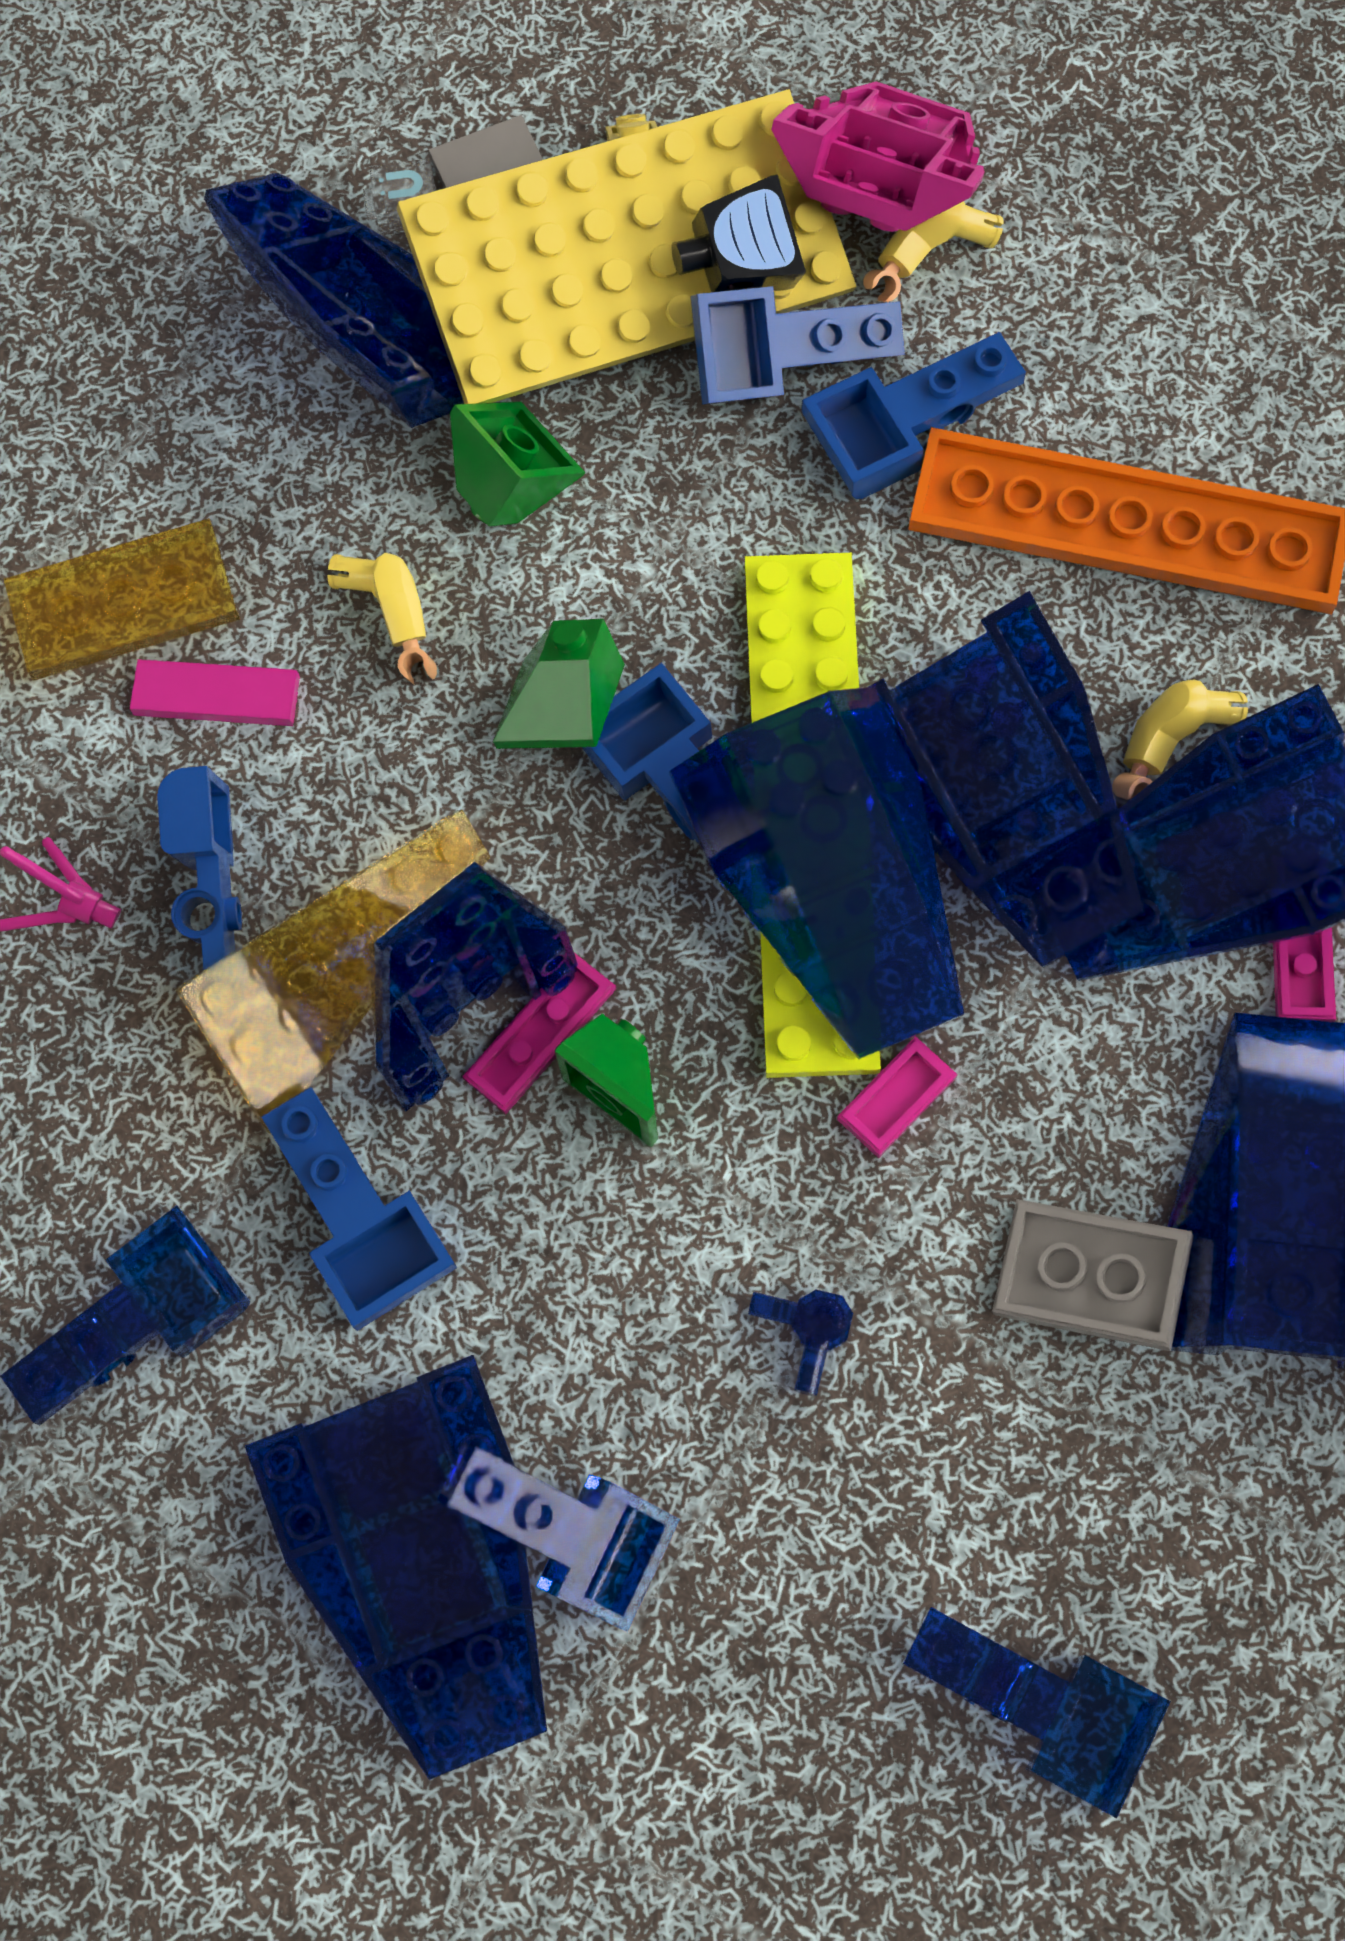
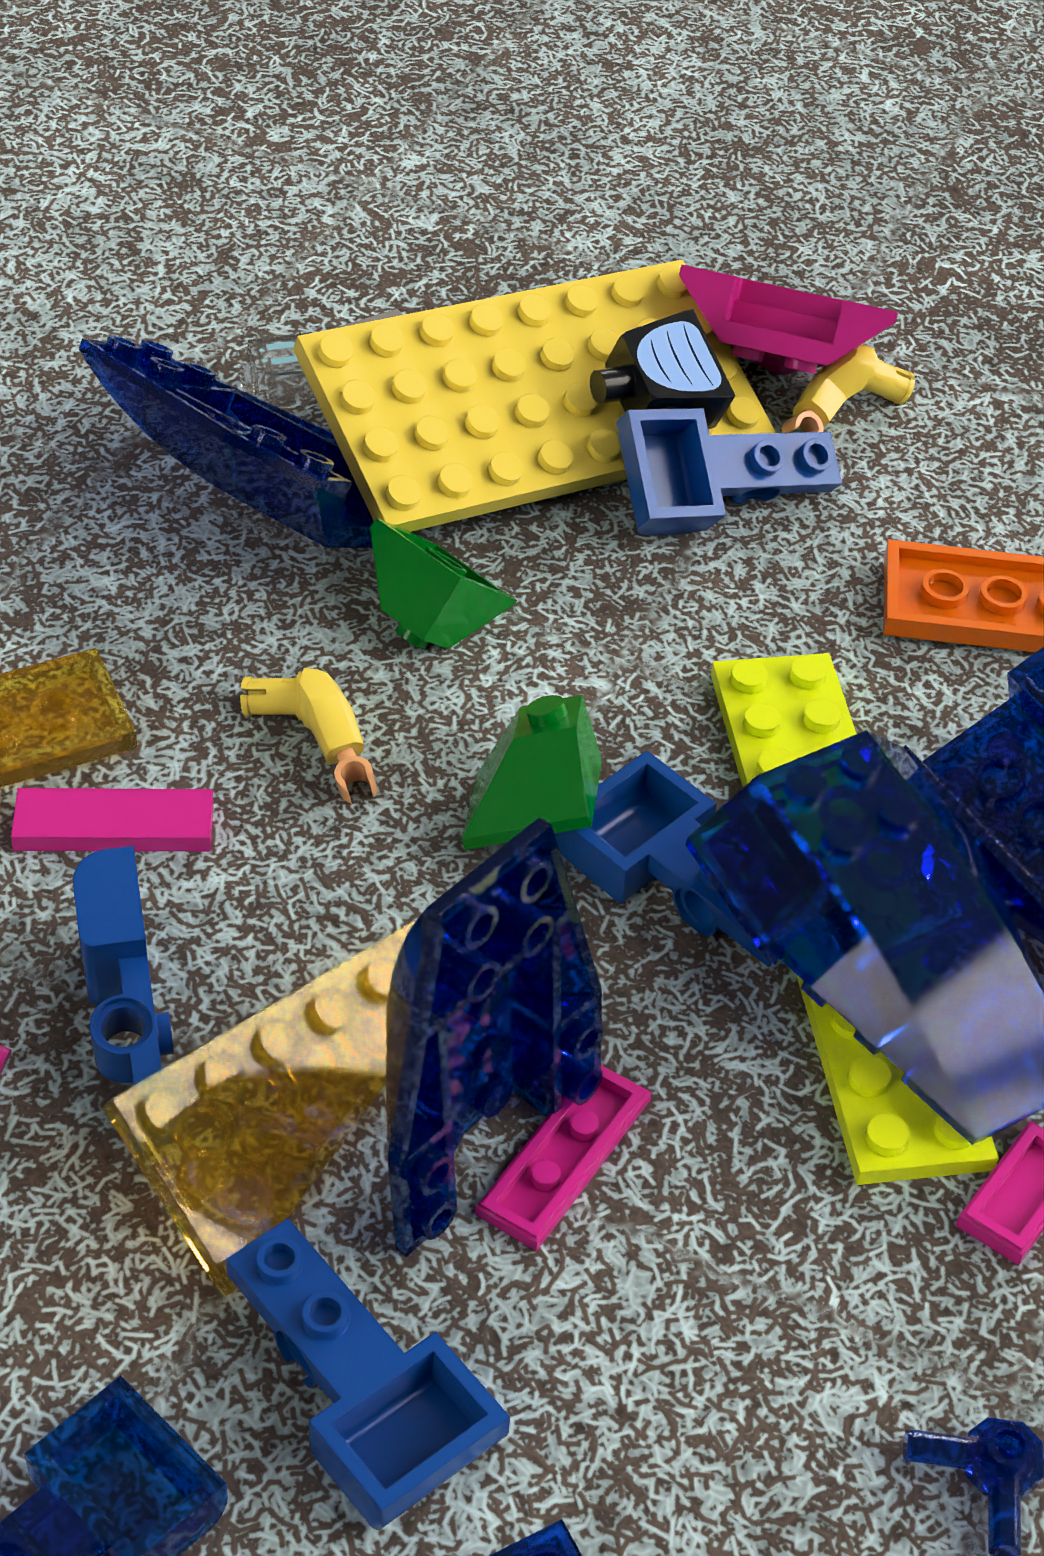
camera: 15 degrees left, 25 degrees down
(613, 1072) = (678, 1186): green slope -> none
(874, 428) = (836, 546): blue plate -> none

